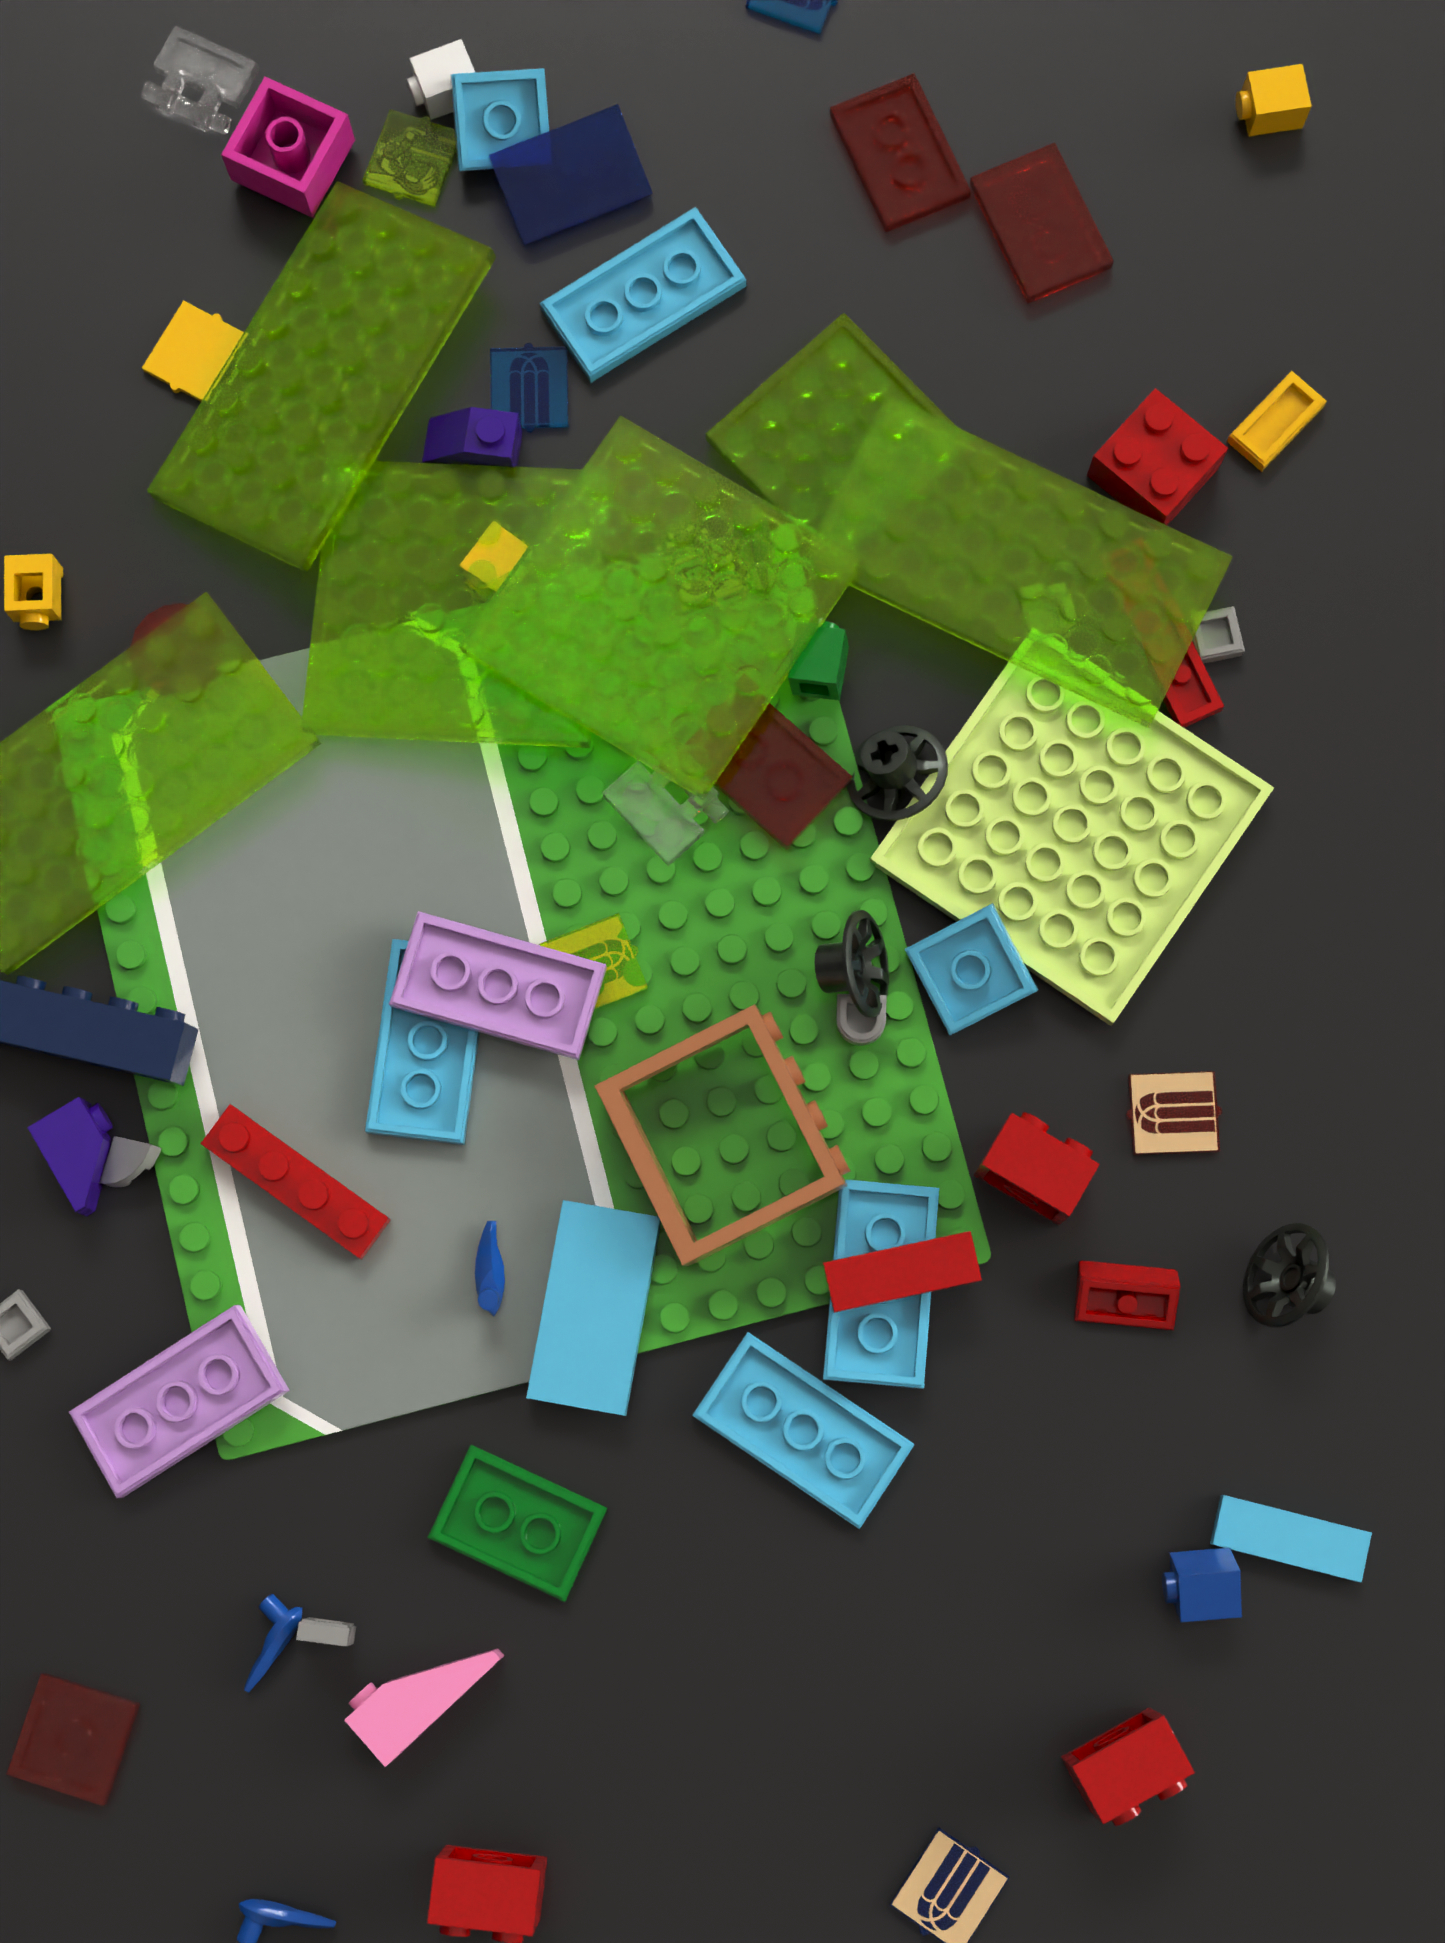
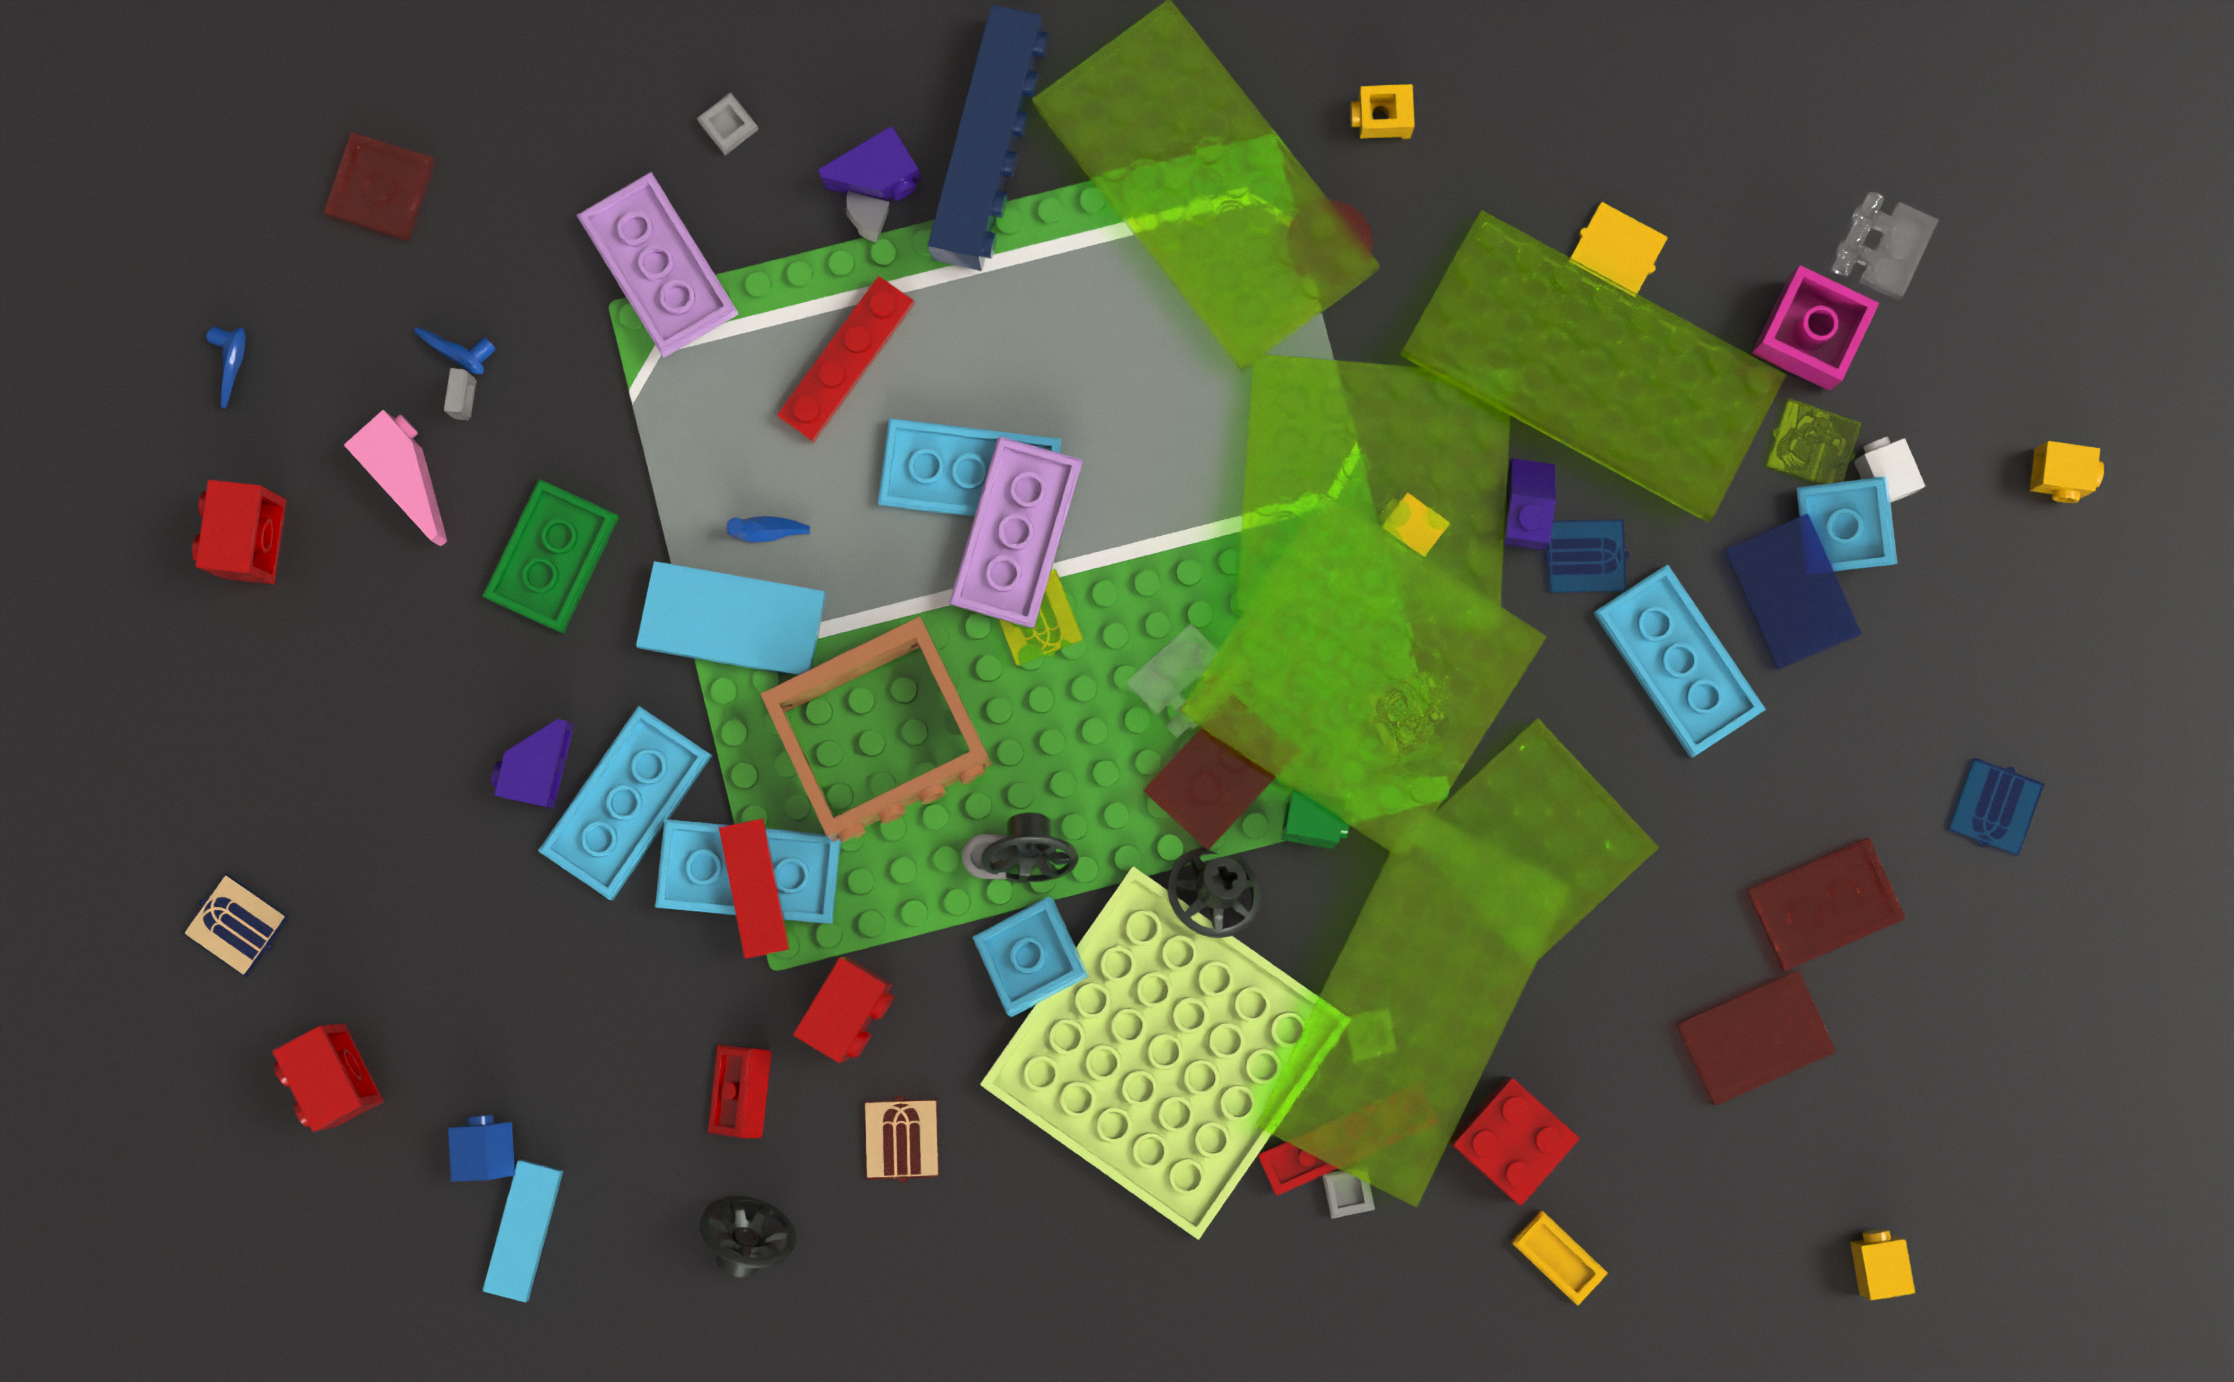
camera: 90 degrees right, 5 degrees up
(764, 1535) = (535, 766): none -> dark purple slope

